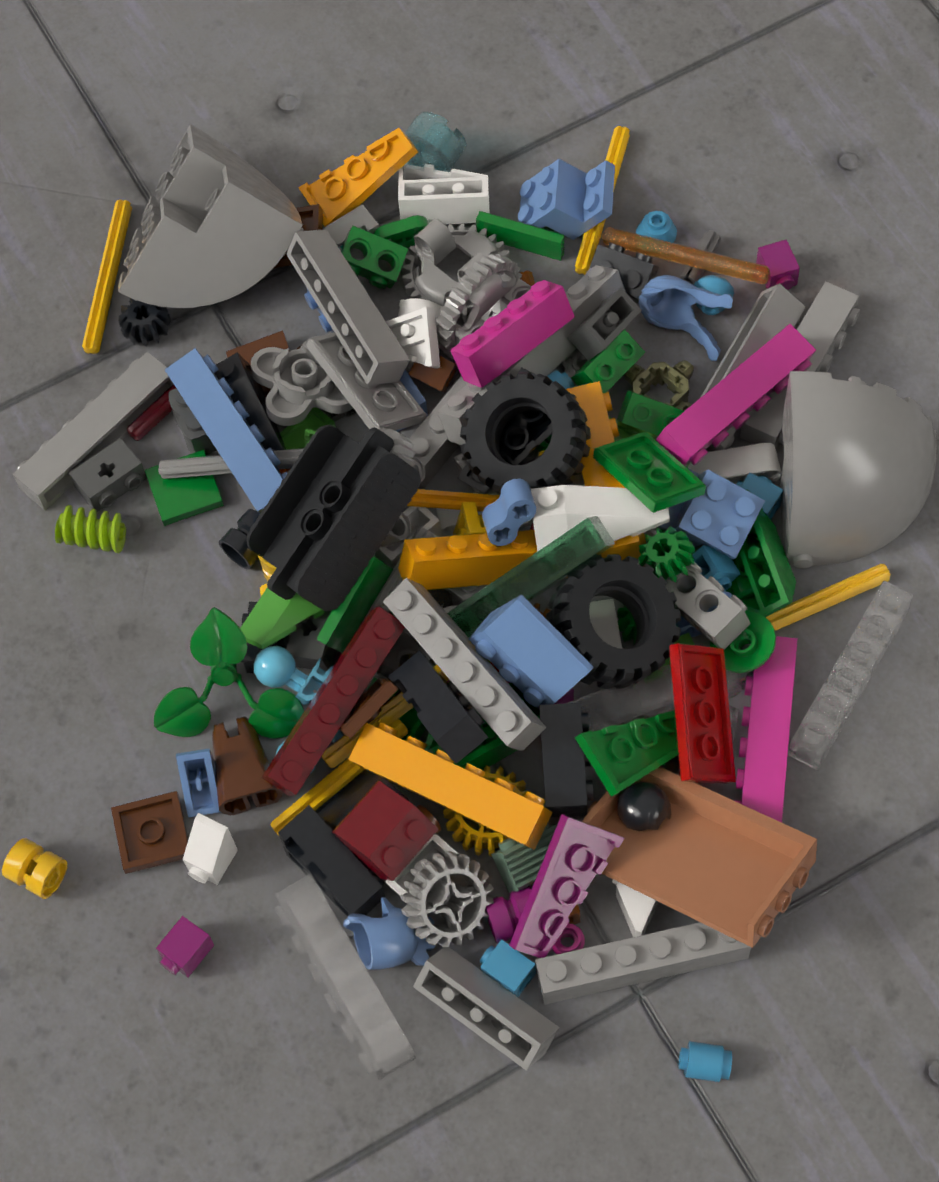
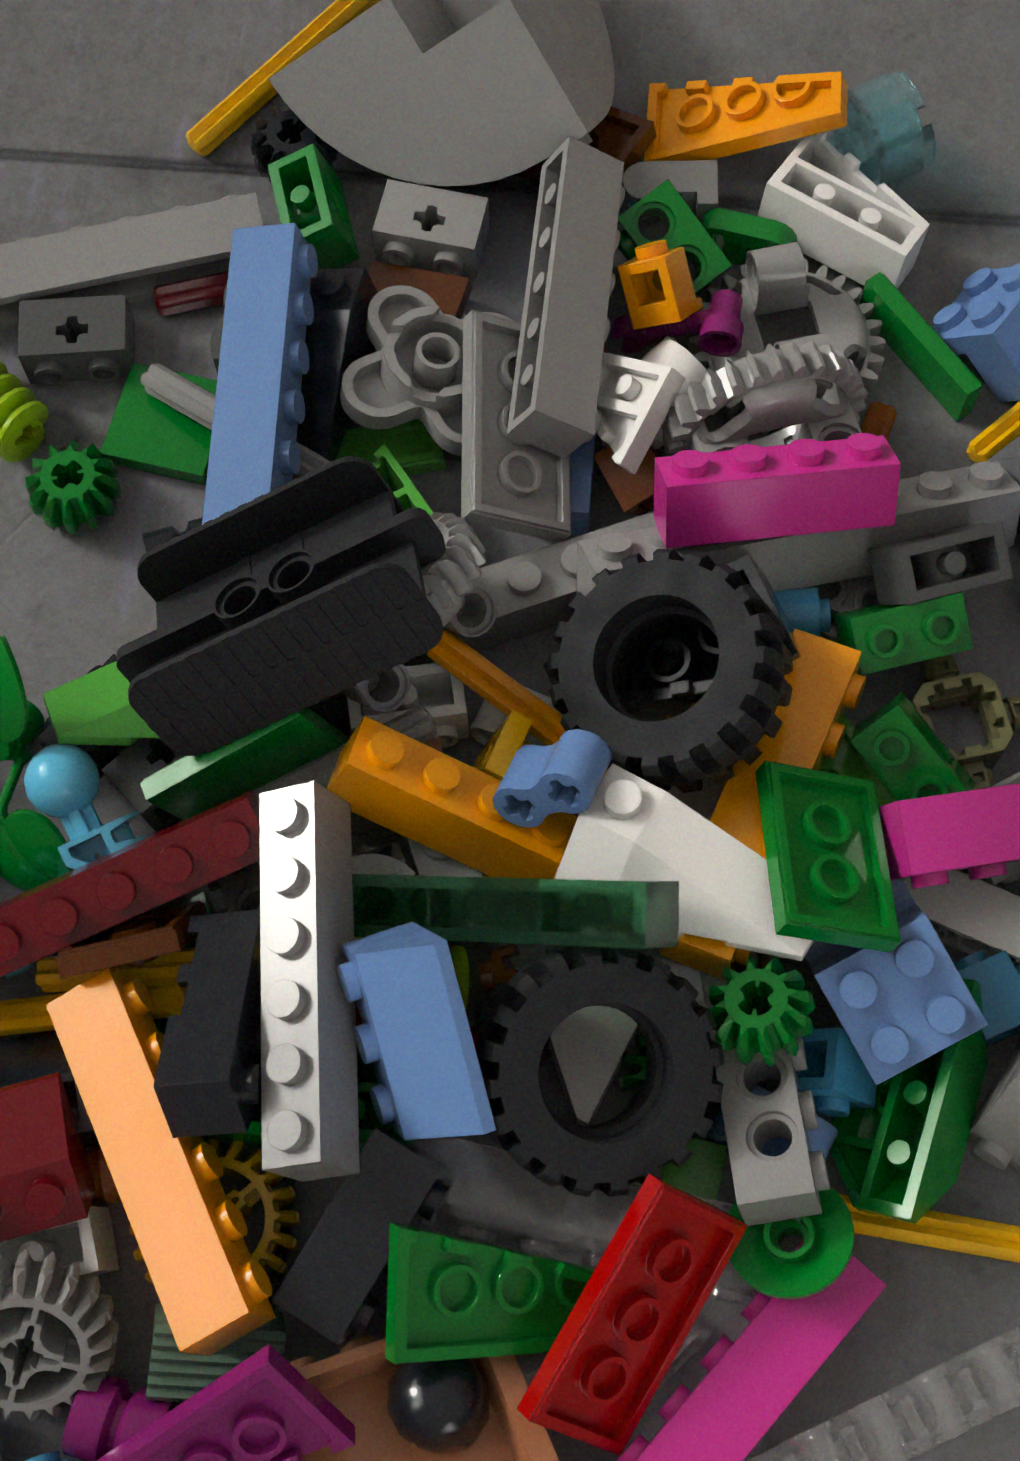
camera: 30 degrees right, 5 degrees up
(170, 535) = (73, 487): none -> green gear
(176, 338) = (314, 199): none -> green brick
(245, 318) = (431, 229): none -> light grey brick
(387, 286) = (658, 285): none -> light orange brick
(423, 279) = (718, 327): none -> magenta brick

